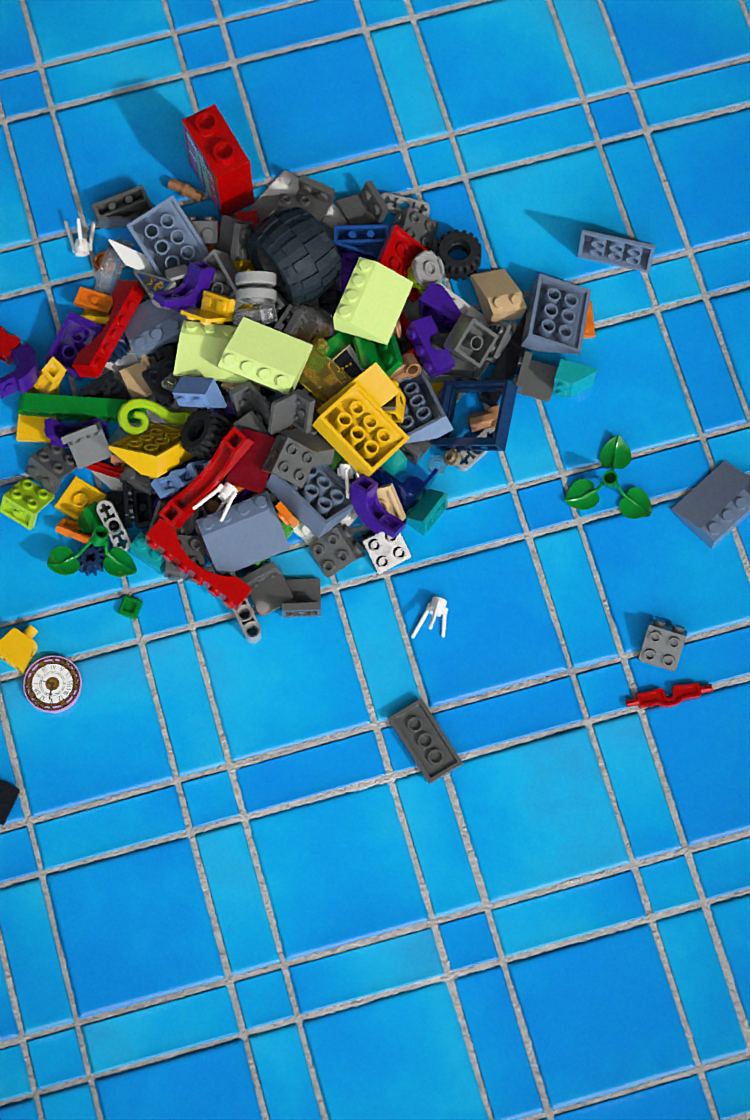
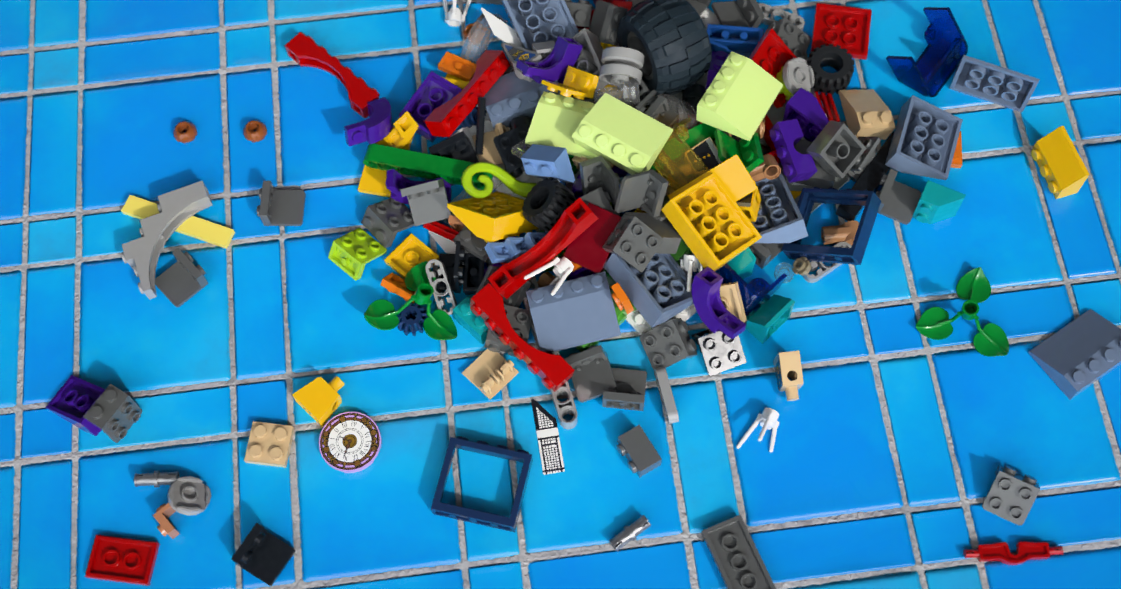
camera: 10 degrees right, 5 degrees down
(126, 360) = (480, 126): none -> black bar
(130, 607) = (444, 373): green tile -> none
(173, 600) = (490, 373): none -> tan hinge
(177, 735) = (474, 516): none -> dark blue window
(236, 655) = (548, 440): none -> sticker
(322, 654) = (639, 451): none -> dark grey brick
(323, 729) = (630, 533): none -> flat silver pin
(340, 598) = (666, 395): none -> light grey beam
(450, 555) = (789, 365): none -> tan torso
(462, 294) = (828, 105): none -> red tile
(467, 209) = (842, 27): none -> red plate
(563, 229) = (938, 60): none -> clear blue windscreen
(685, 322) = (1060, 163): none -> yellow slope

